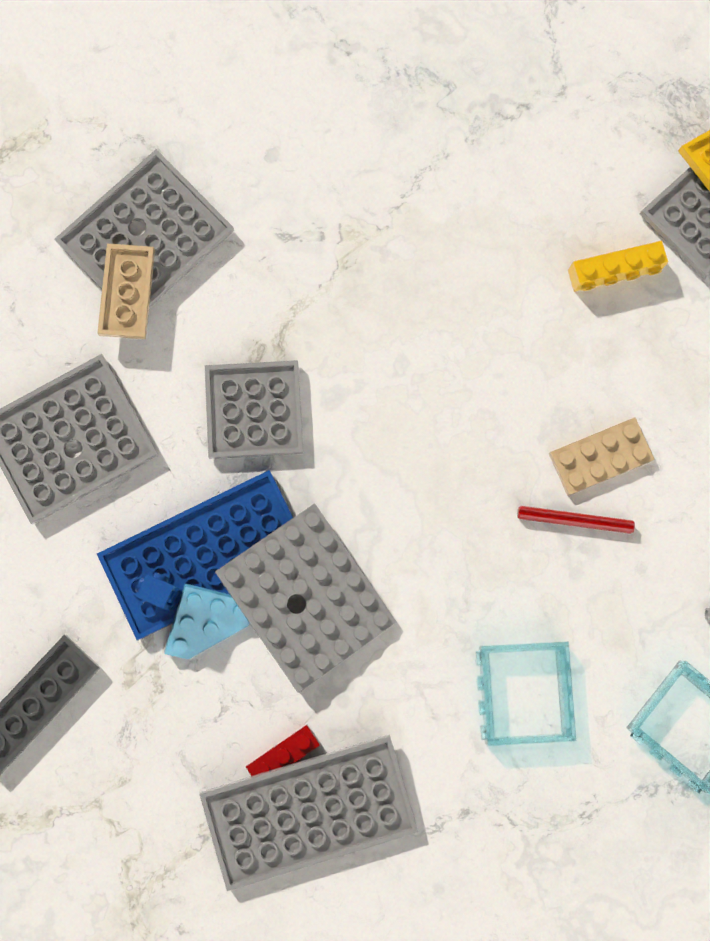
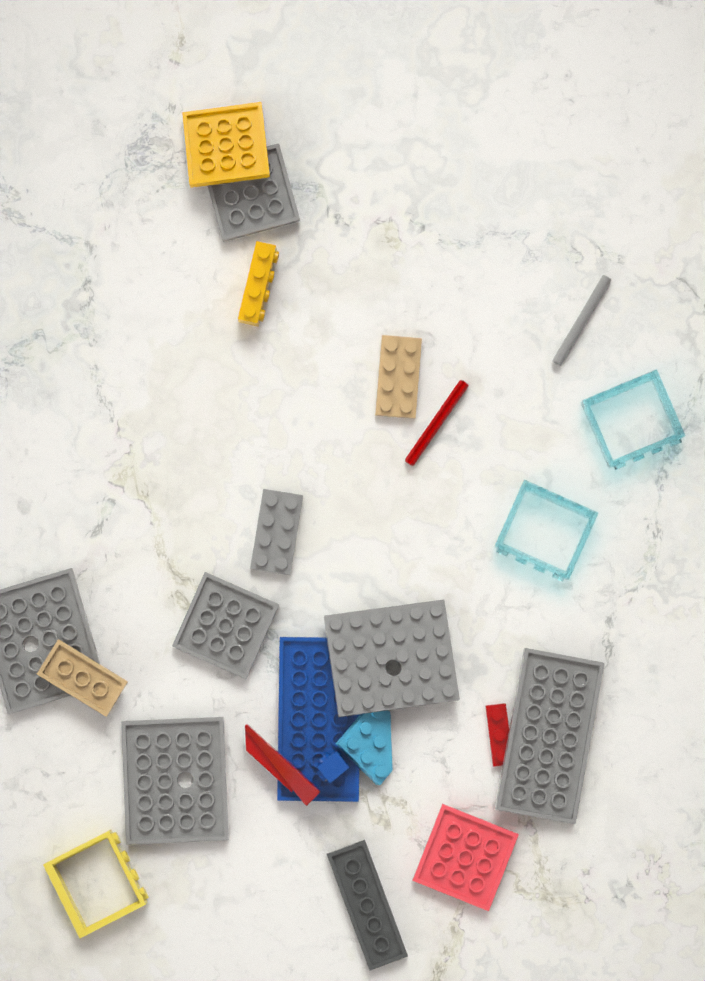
camera: 55 degrees left, 5 degrees up
(132, 787) = (465, 857): none -> coral plate
(133, 537) = (279, 766): none -> red wedge
(376, 413) = (276, 531): none -> light grey plate

